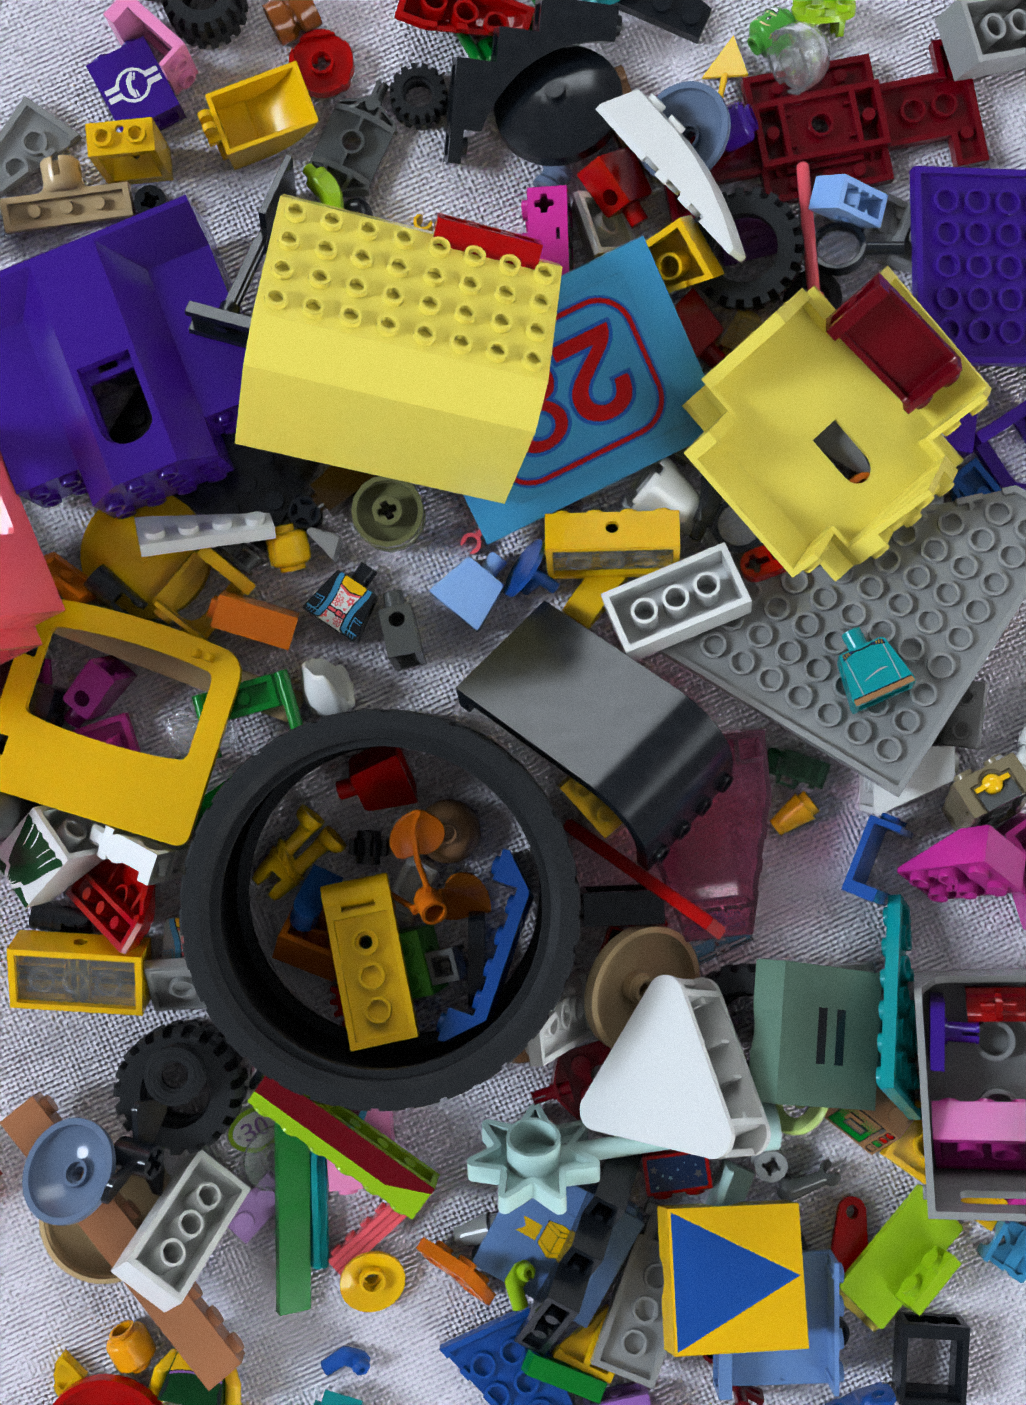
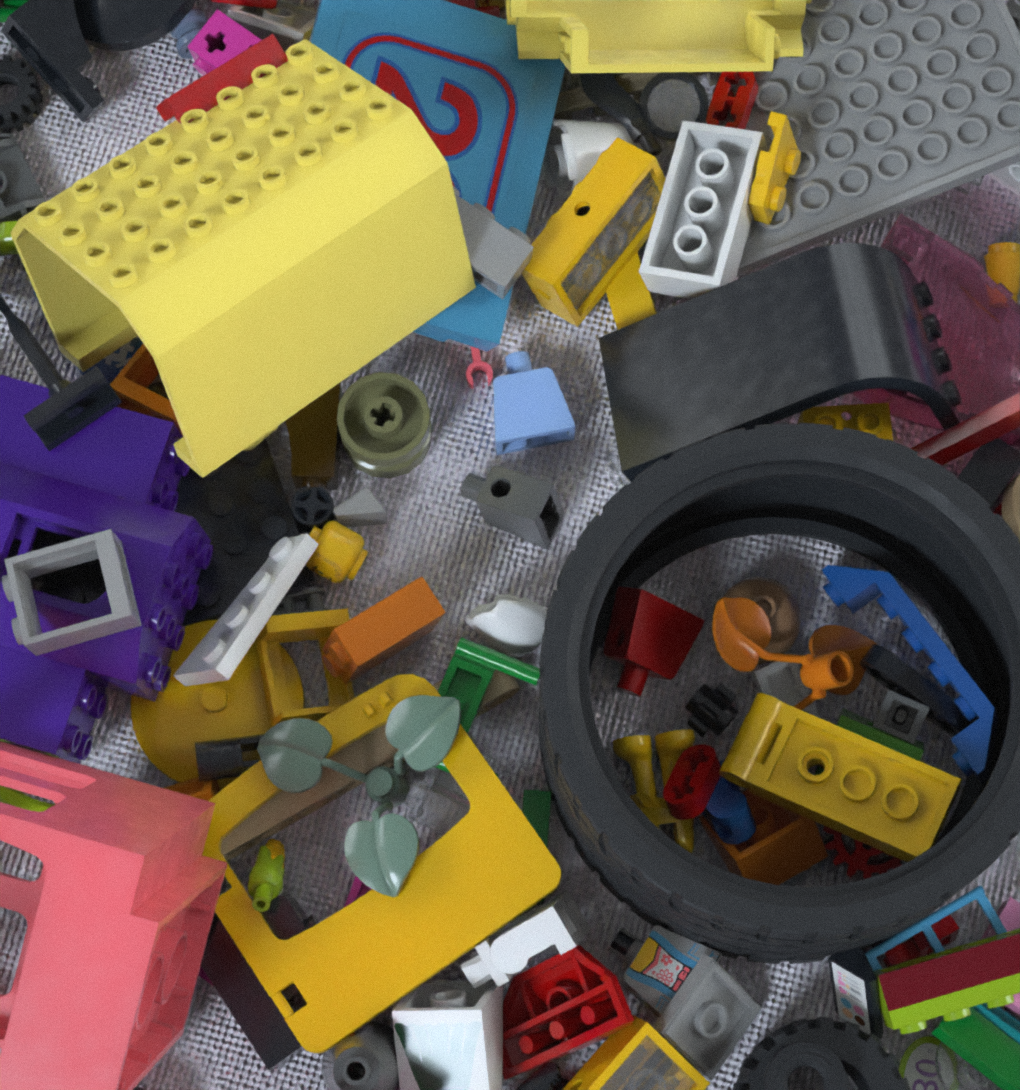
camera: 50 degrees left, 15 degrees down
(61, 669) = (267, 875): none -> lime piece
(96, 689) = (313, 842): magenta torso -> none
(124, 448) = (18, 588): none -> light grey window
(201, 698) = (387, 847): none -> sand green plant
(310, 873) = (684, 780): none -> red beam
(345, 602) = (439, 538): torso -> none
(525, 575) = (554, 337): blue shield -> none
(532, 488) = (494, 251): none -> light grey slope
(734, 625) = (773, 170): none -> yellow wing
(798, 768) = (969, 228): clear green piece -> none
(871, 671) = (920, 76): teal torso -> none

